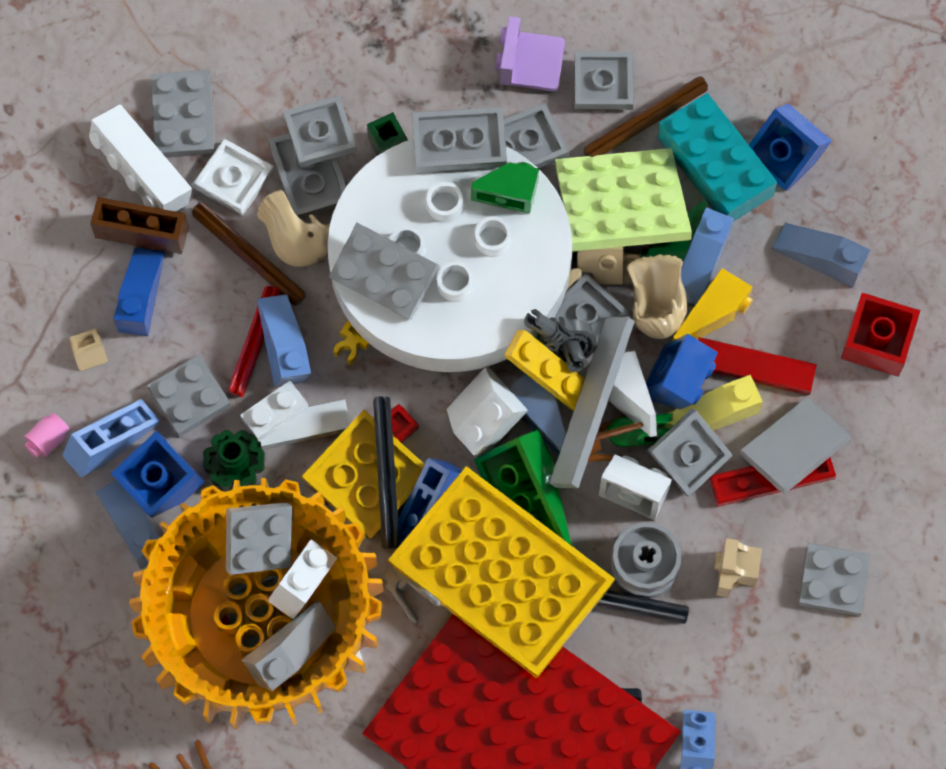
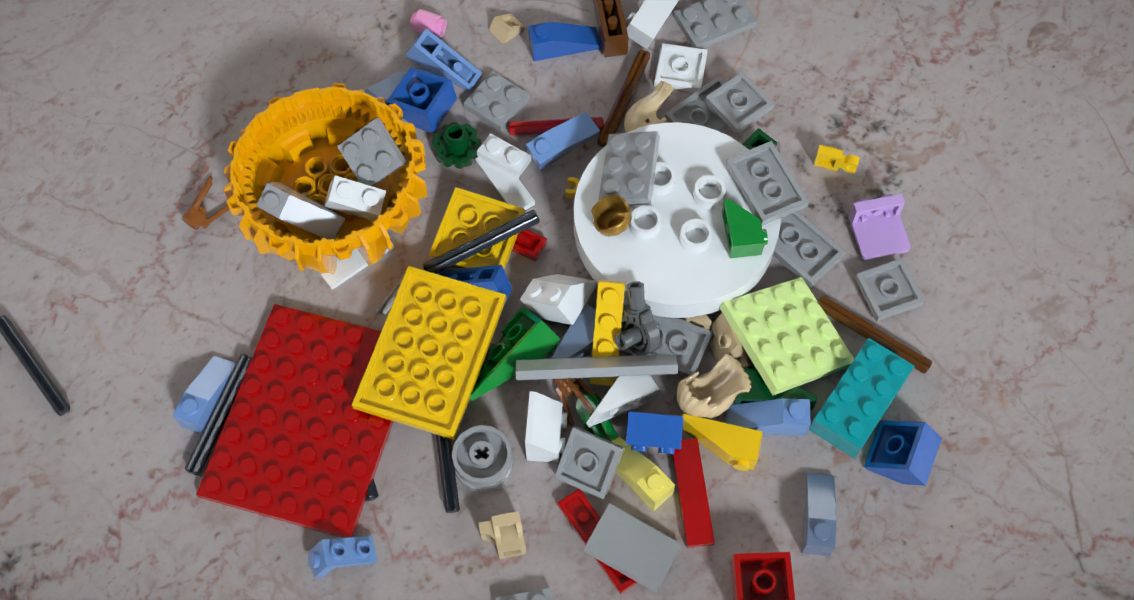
camera: 70 degrees right, 5 degrees down
(423, 69) = (833, 158): none -> yellow plate
(438, 310) = (611, 215): none -> pearl gold hair

